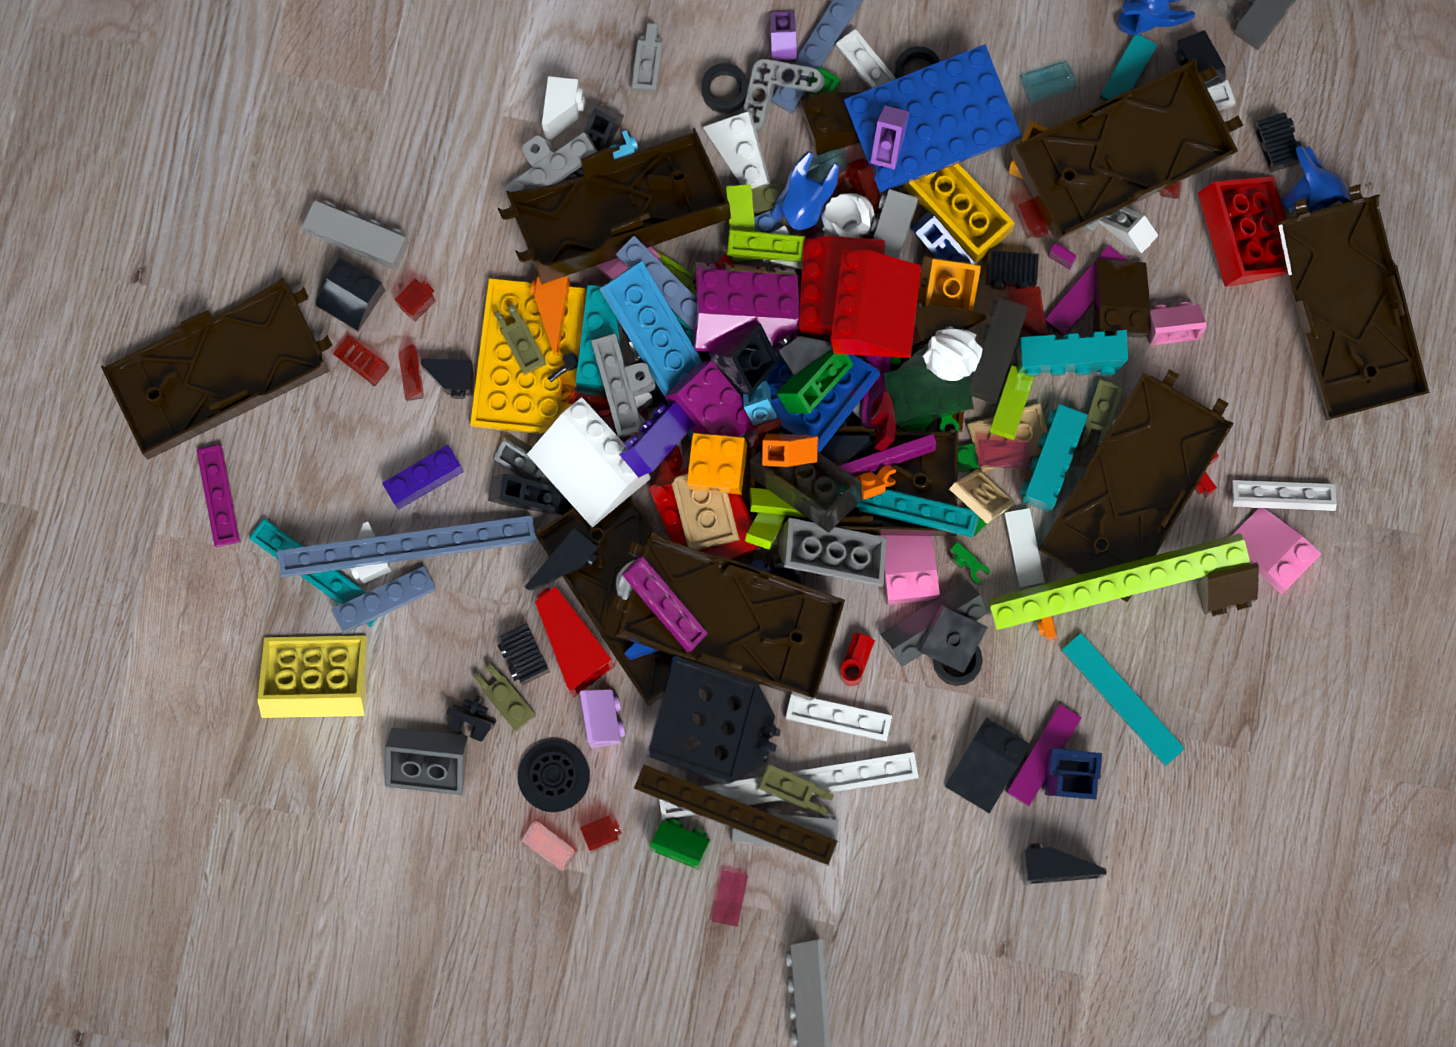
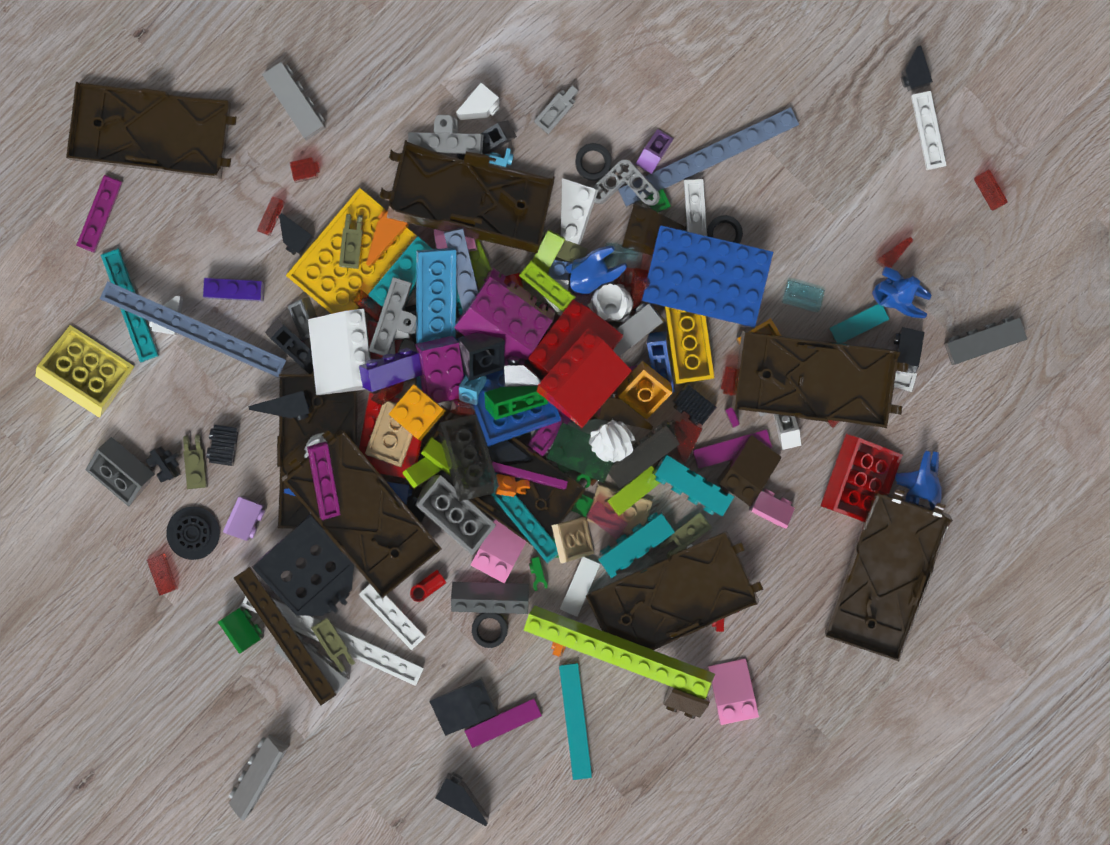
camera: 30 degrees right, 10 degrees up
(349, 294) = (264, 138): black slope -> none
(375, 368) = (253, 194): clear red slope -> none
(383, 599) = (158, 352): sand blue plate -> none
(571, 363) = (374, 278): black hand -> none
(575, 647) = (256, 459): red slope -> none
(601, 833) = (197, 589): clear red brick -> none
(730, 898) = (251, 681): clear pink tile -> none
(789, 449) = (467, 434): orange slope -> none
(884, 418) = (543, 449): dark red slope -> none
(889, 137) = (670, 272): medium lavender slope -> none
(952, 638) = (492, 616): black plate -> none
(1073, 773) = (510, 750): dark blue plate -> none
(1278, 141) = (921, 435): black brick -> none
(1283, 495) = (763, 662): white plate -> none

